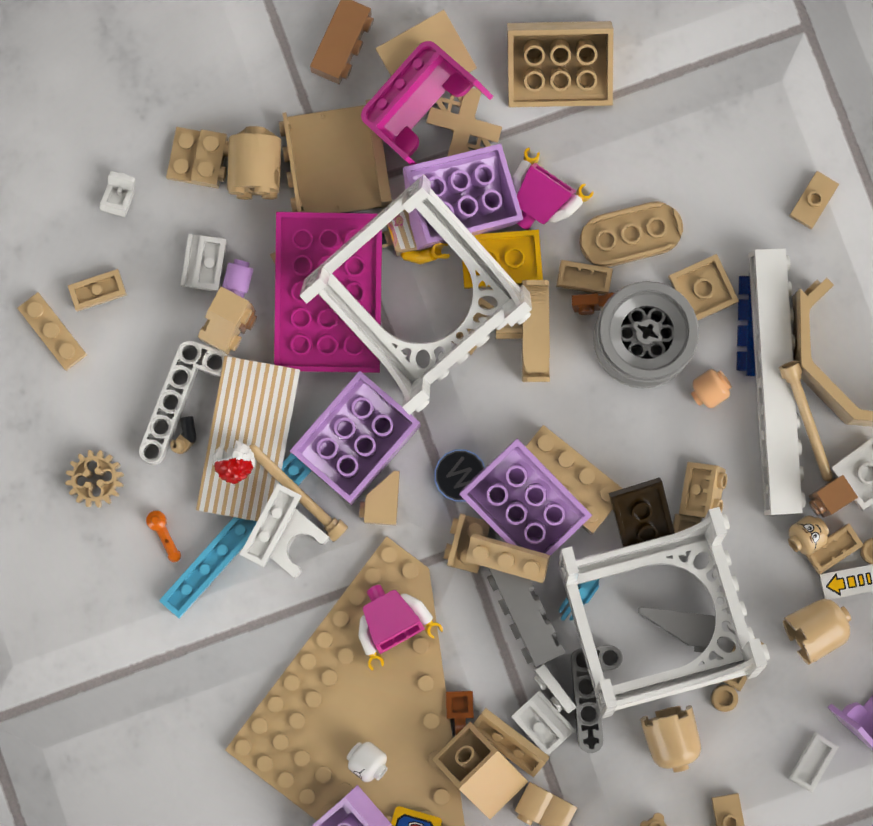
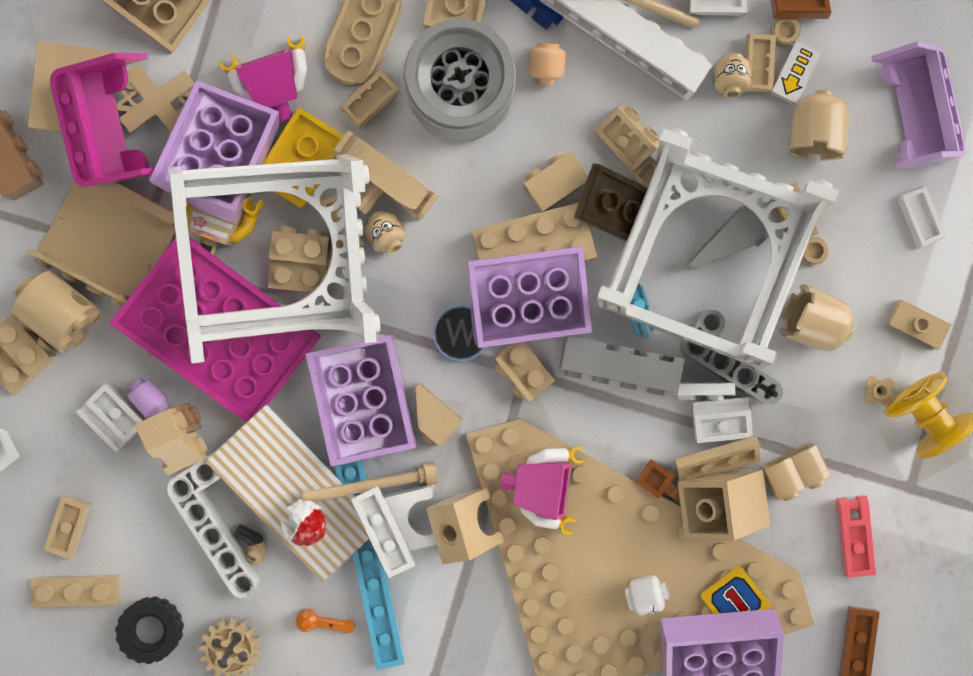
camera: 55 degrees left, 5 degrees up
(49, 394) = (128, 638): none -> black tyre
(313, 579) = (457, 527): none -> tan piece
(424, 313) = (298, 259): none -> tan plate
(493, 362) = (385, 232): none -> tan head
(508, 558) = (564, 346): tan plate -> none
(589, 303) = (395, 111): dark orange plate -> none
(627, 461) = (555, 182): none -> tan brick
(832, 497) = (718, 28): medium nougat brick -> none

